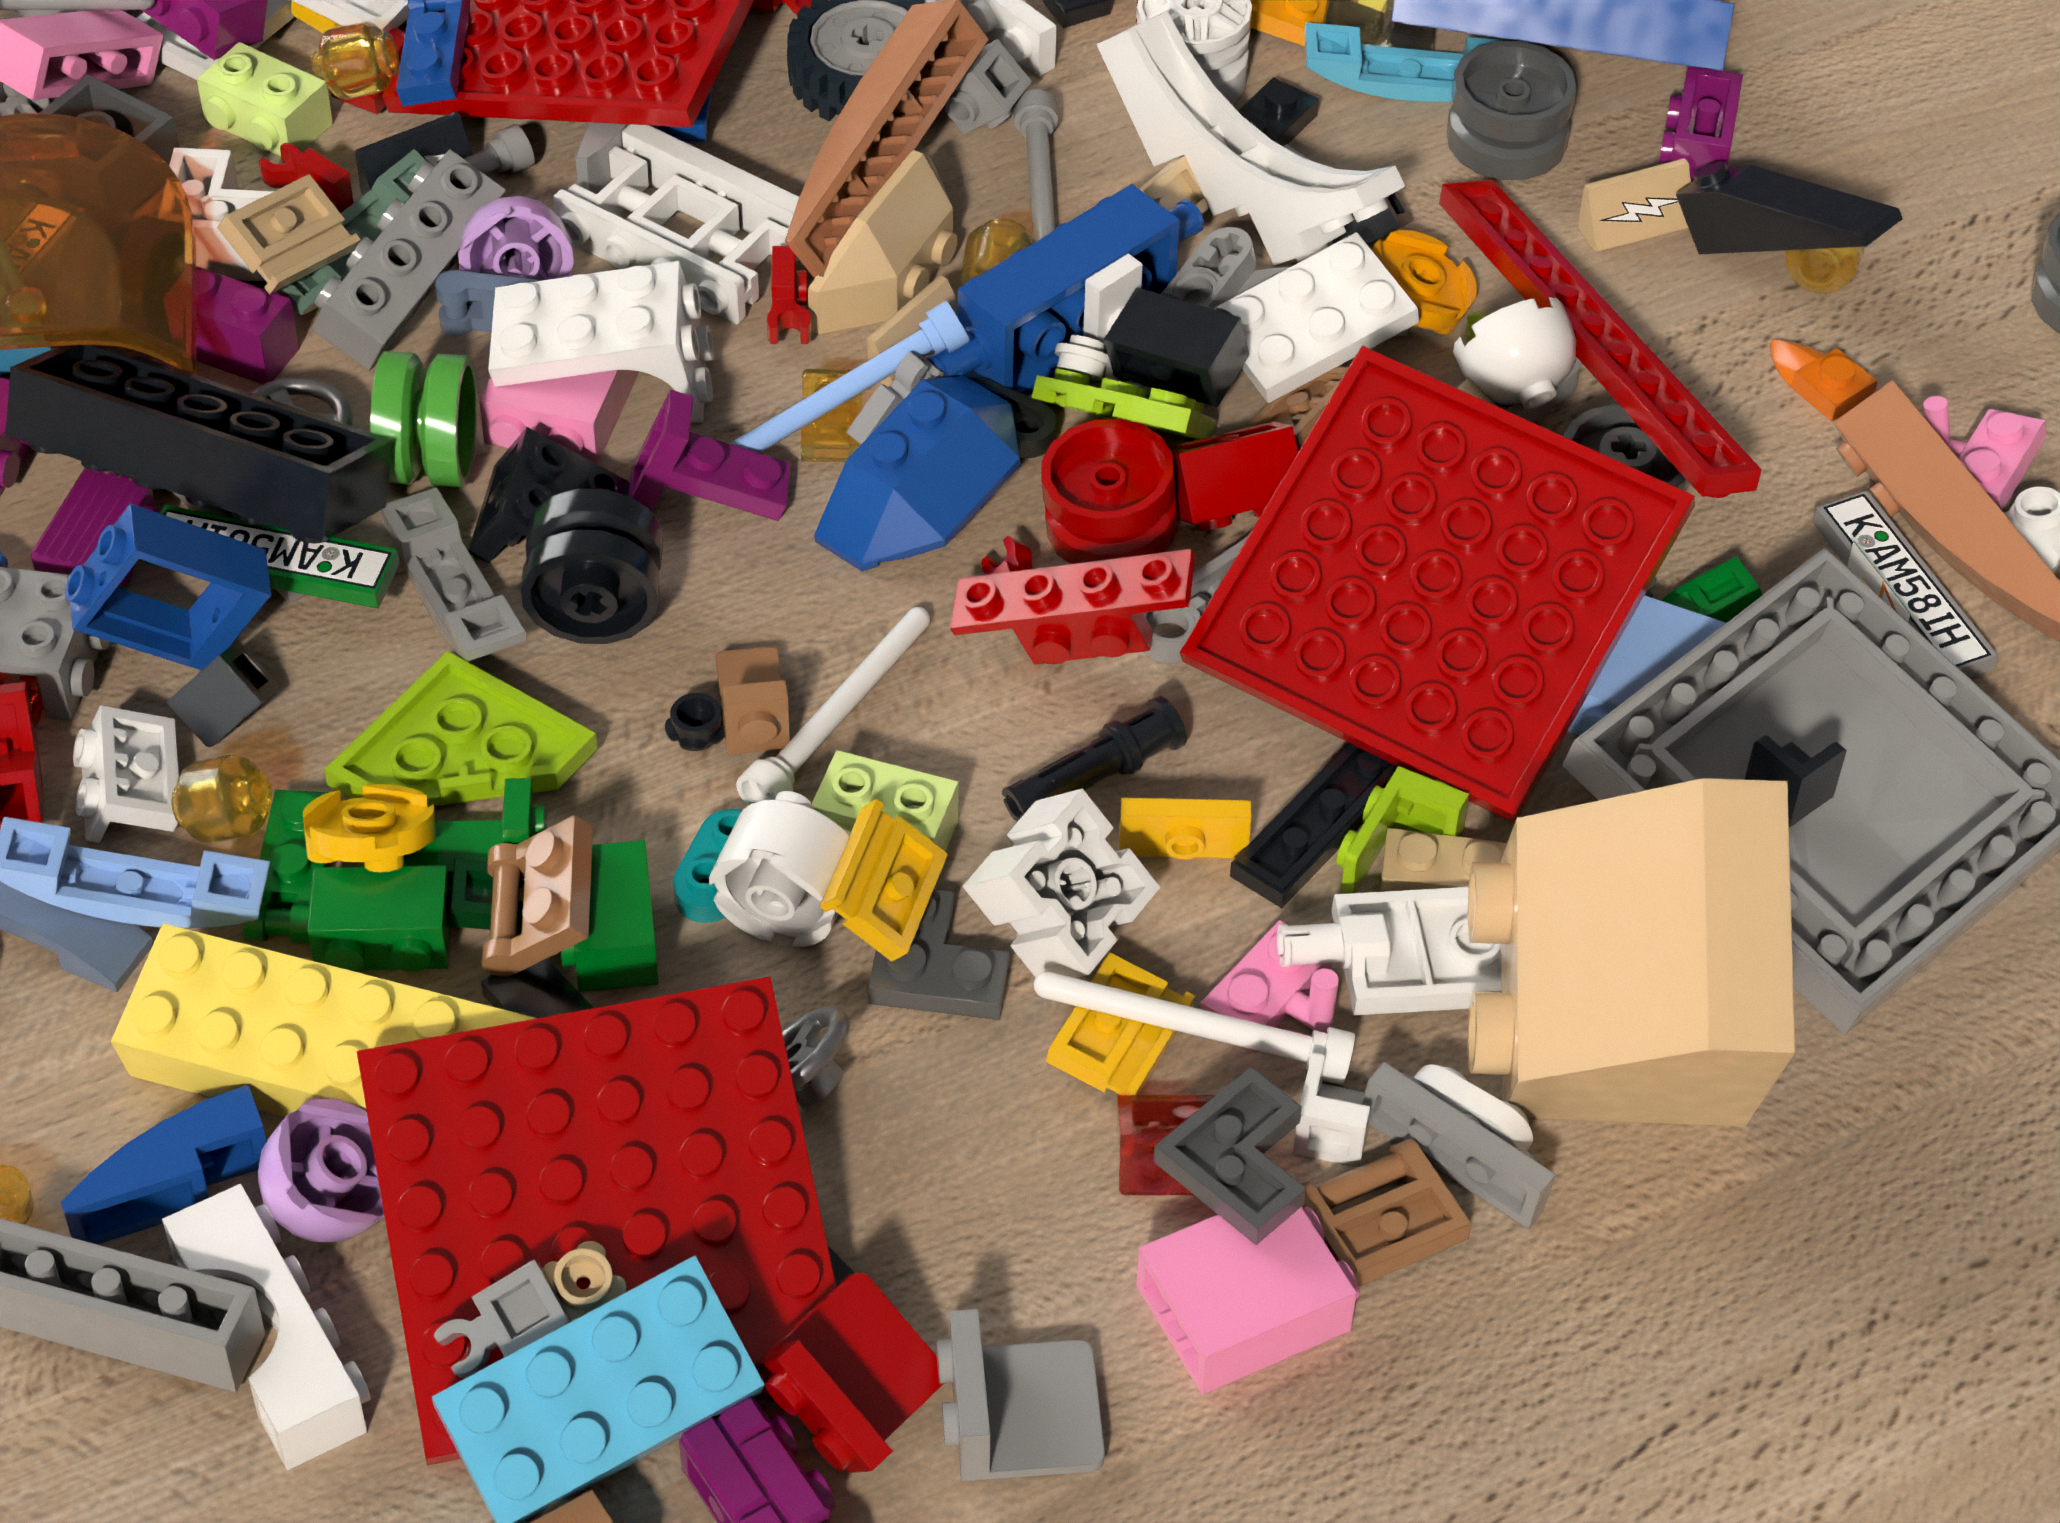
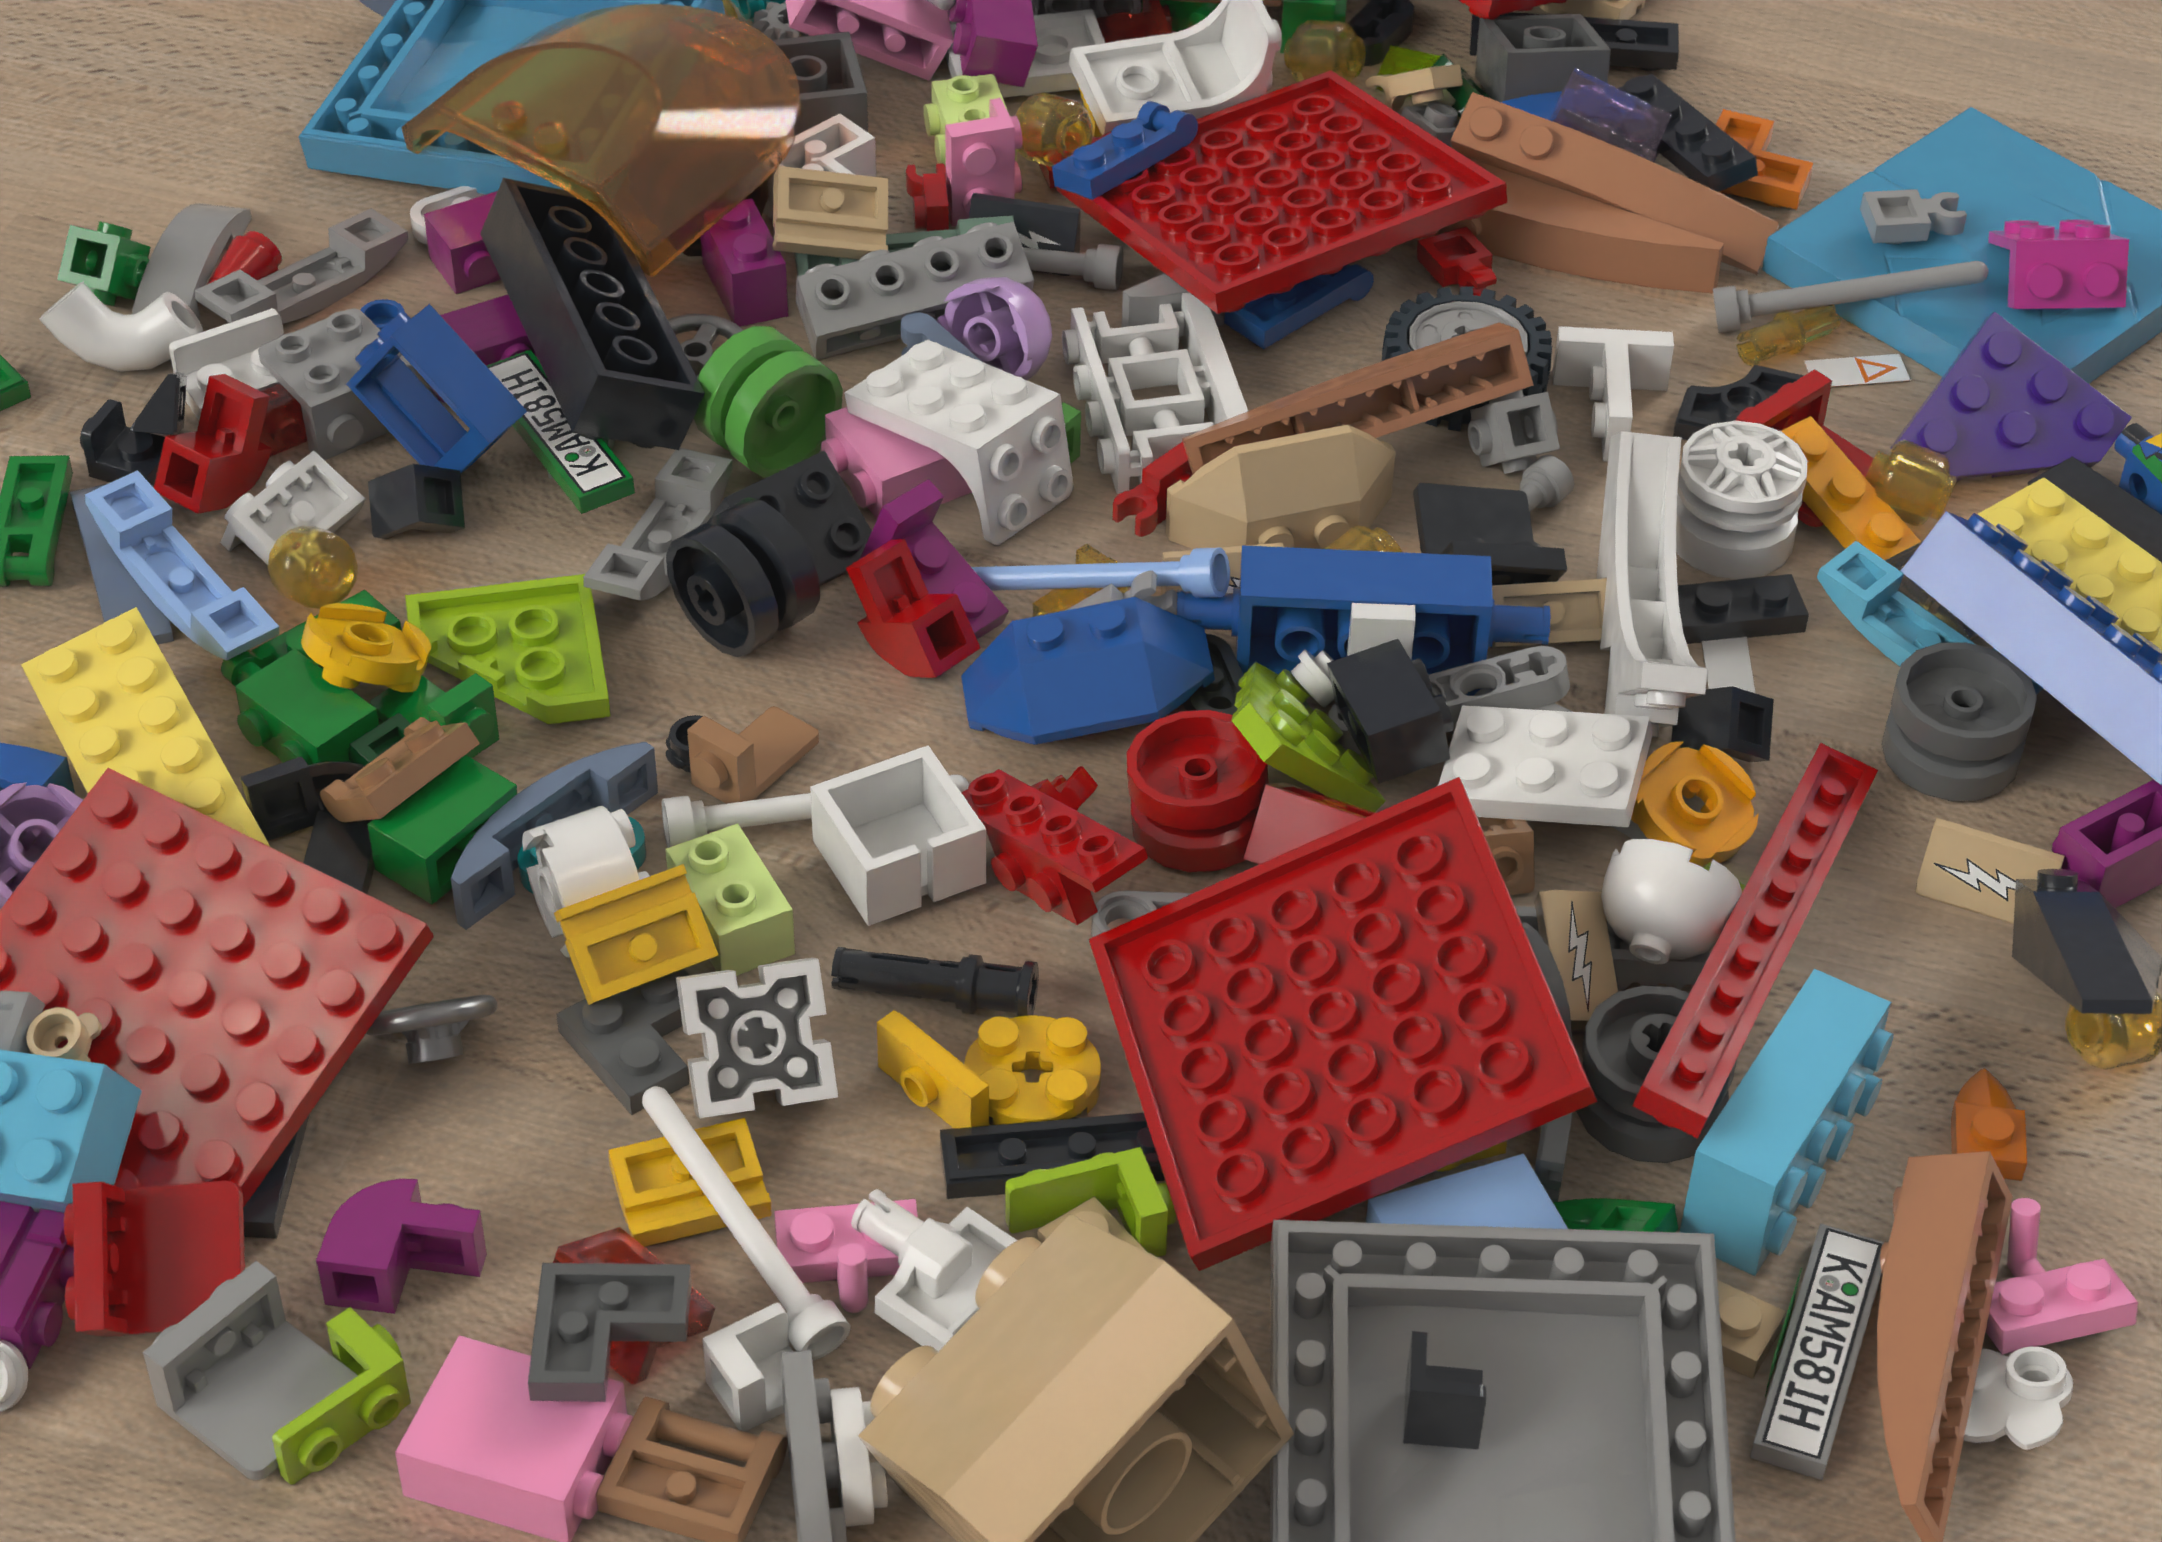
camera: 45 degrees right, 5 degrees down
(334, 111) = (982, 159): none -> bright pink bracket
(457, 967) = (288, 793): none -> black plate
(673, 809) = (611, 779): none -> sand blue slope
(744, 522) = (905, 623): none -> red brick
(951, 676) = (898, 834): none -> white piece
(976, 1232) = (384, 1235): none -> magenta brick
(1059, 184) = (1485, 524): none -> black bracket
(1100, 1322) = (354, 1409): none -> lime bracket
(1239, 750) = (1039, 1043): none -> yellow plate
(1779, 522) = (1788, 1121): none -> medium azure brick

